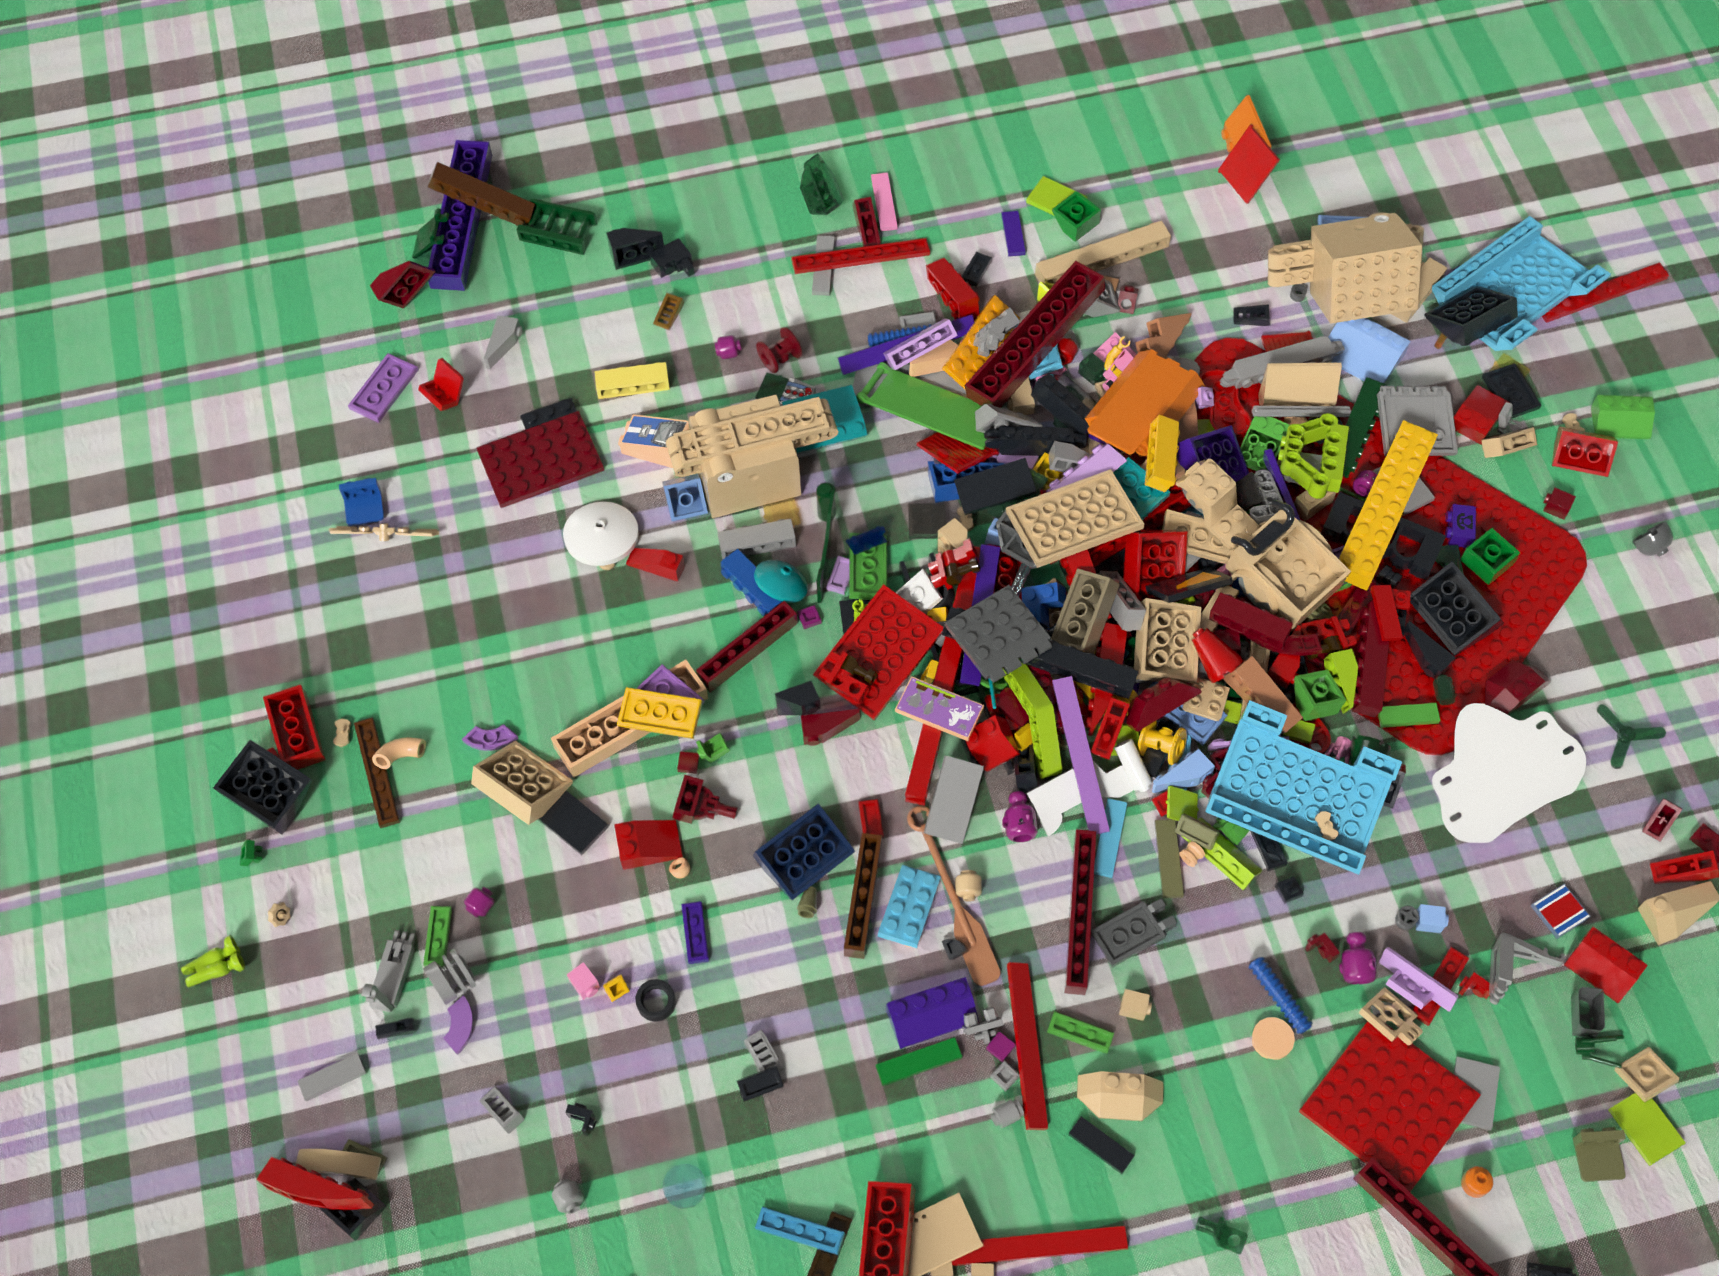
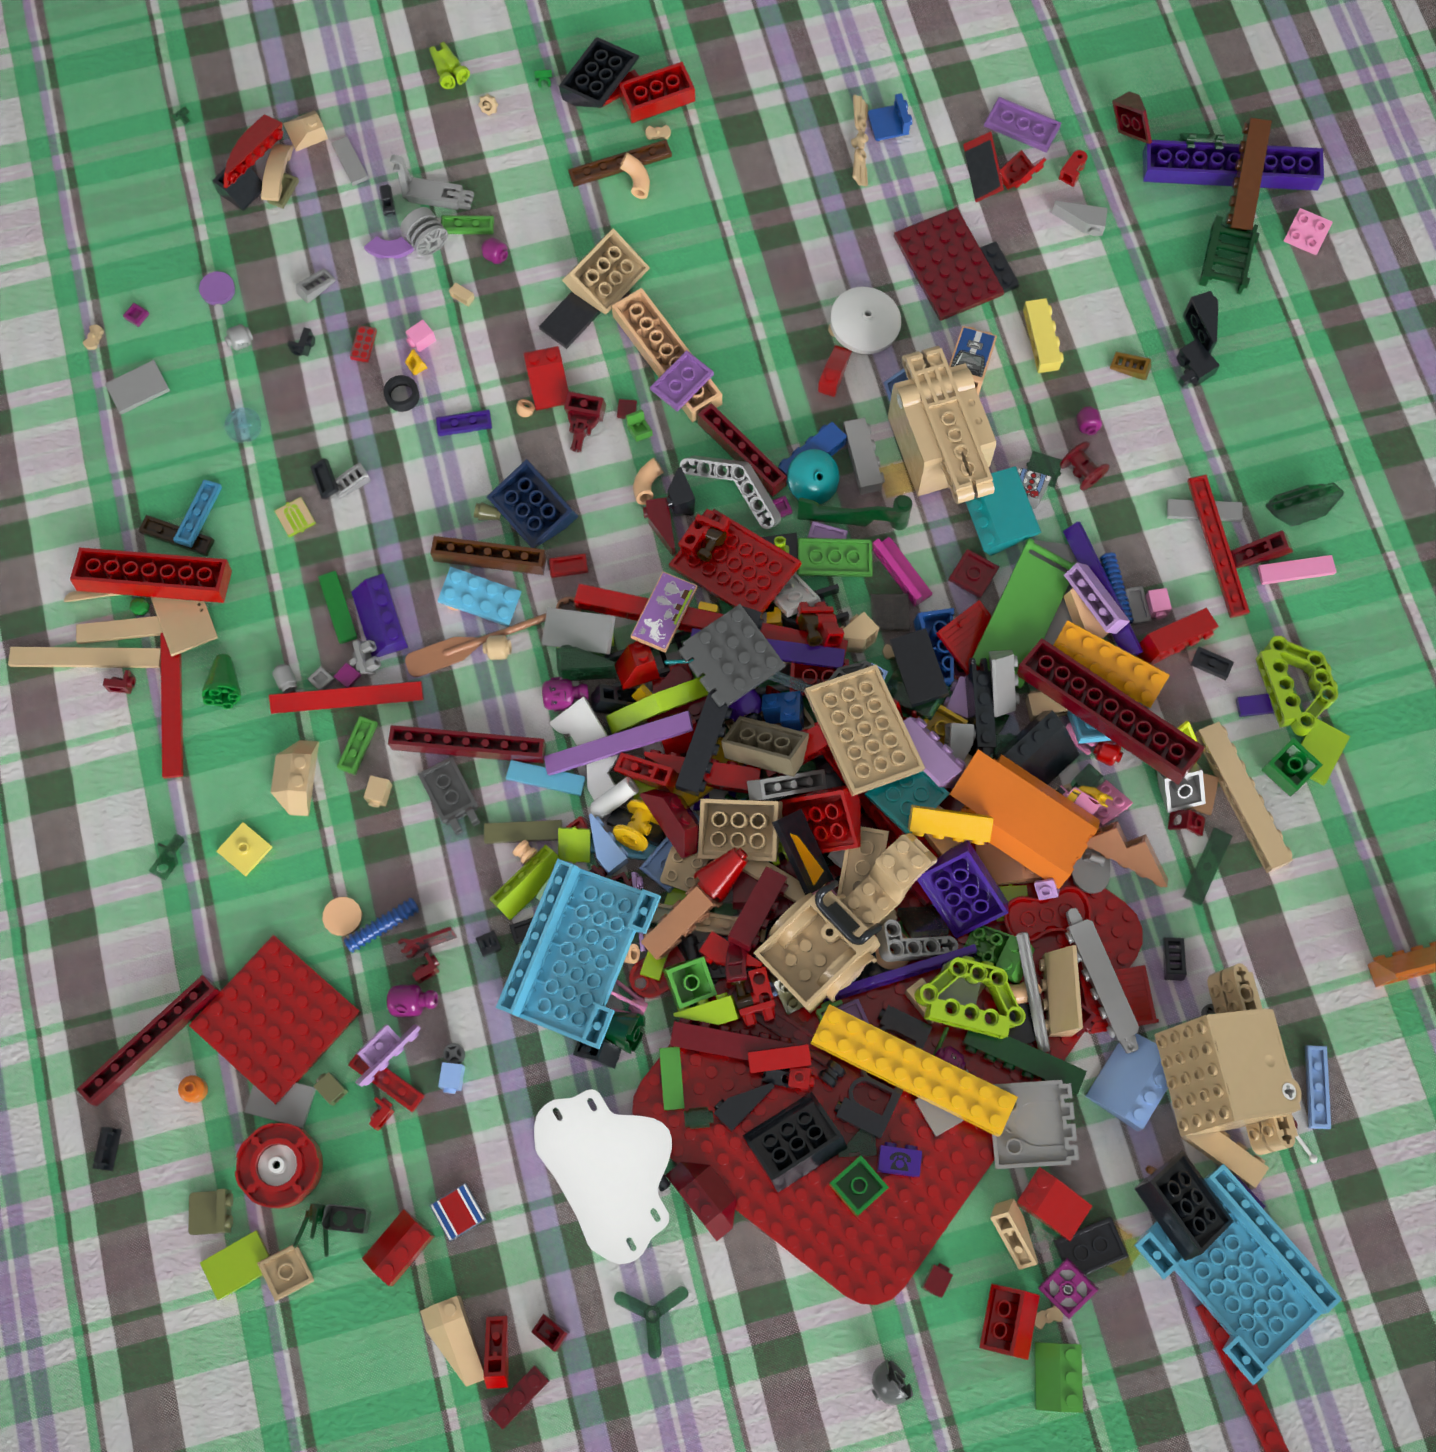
camera: 90 degrees right, 10 degrees up
(278, 1132) = (305, 130): none -> tan slope
(431, 421) = (983, 167): none -> black sticker
(442, 345) = (1070, 171): none -> red leg
(489, 739) = (651, 247): medium lavender tile -> none
(493, 1231) = (217, 288): none -> medium lavender tile
(531, 938) = (461, 294): none -> tan piece
(537, 164) = (1308, 231): none -> bright pink hinge
(585, 1049) = (363, 344): none -> red tile
(659, 713) = (661, 371): yellow tile -> none
(776, 742) = (644, 481): none -> light nougat cylinder
(780, 651) = (741, 481): none -> light grey beam
(805, 1118) = (295, 517): none -> piece
(867, 540) = (860, 552): clear blue hinge -> none
(882, 511) = (901, 570): none -> dark pink panel
(885, 449) = (973, 573): none -> dark red plate
(918, 303) = (1158, 603): none -> bright pink brick
(954, 948) = (440, 636): black tile -> none
(989, 807) = (582, 665): none -> clear green slope
(994, 332) = (1110, 663): light grey hips -> none
(1014, 1182) = (221, 683): none -> green cone
(1020, 214) = (1300, 658): none -> lime brick
(1101, 1145) = (254, 759): black tile -> none
(1166, 286) = (1207, 866): none -> clear green tile
(1197, 831) = (542, 854): tile -> none
(1205, 1149) = (244, 849): none -> light yellow plate
(1249, 164) = (1381, 960): red piece -> none
(1297, 942) = (427, 941): none -> dark red flag
(1326, 826) = (545, 978): tan piece -> none
(1407, 1030) = (342, 1037): tan piece -> none
(1457, 1038) = (330, 1088): none -> olive brick
(1502, 962) = (402, 1139): light grey hinge -> none
(1505, 415) = (1049, 1231): light grey tile -> none
(1544, 1084) = (259, 1160): none -> red piece
(1549, 406) = (1068, 1288): none -> magenta piece

